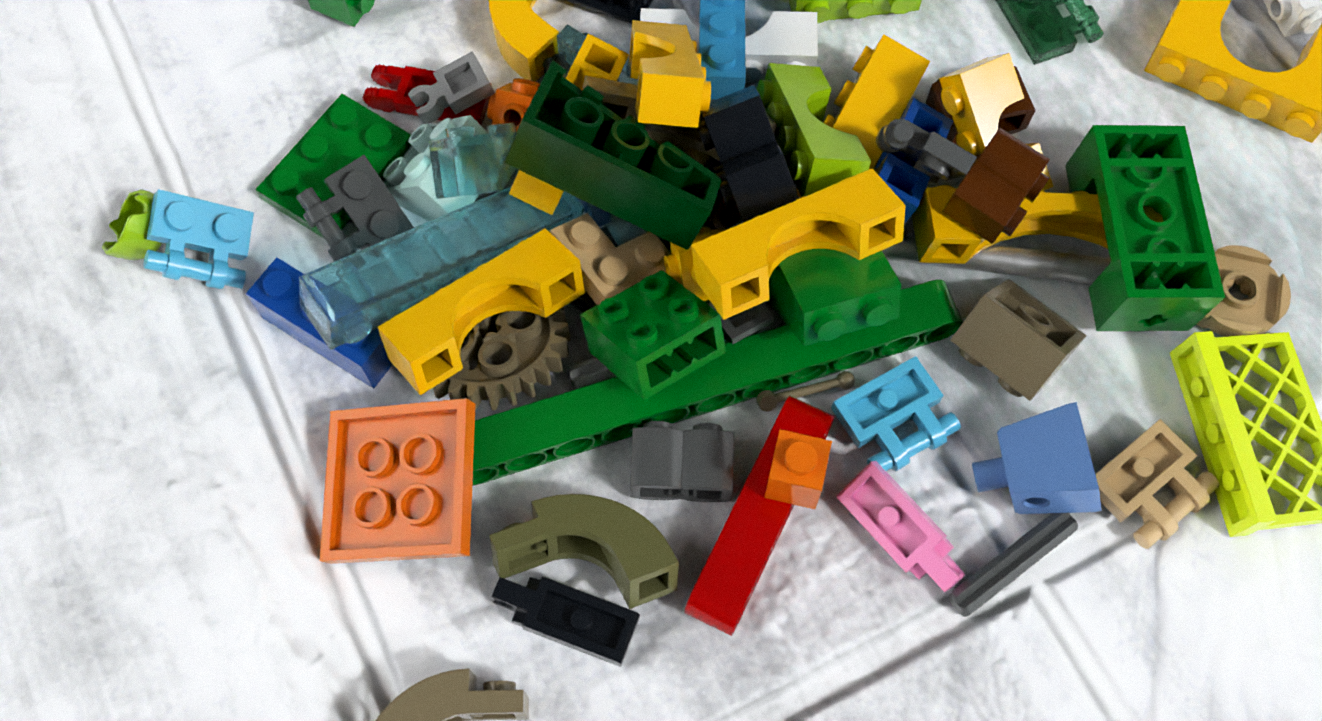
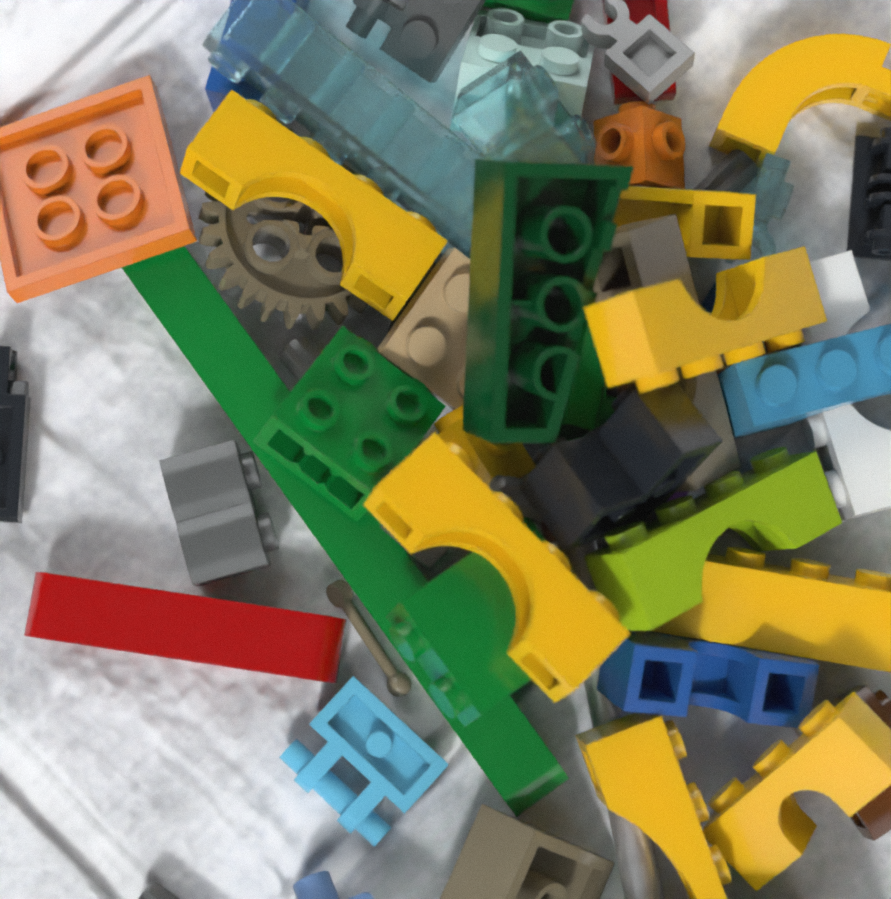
camera: 70 degrees right, 15 degrees up
(594, 532) = (99, 436): olive arch -> none
(798, 469) = (221, 654): orange brick -> none
(900, 526) = (216, 803): bright pink hinge -> none
(929, 151) = (707, 713): dark grey plate -> none
(996, 187) = (684, 811): reddish brown brick -> none

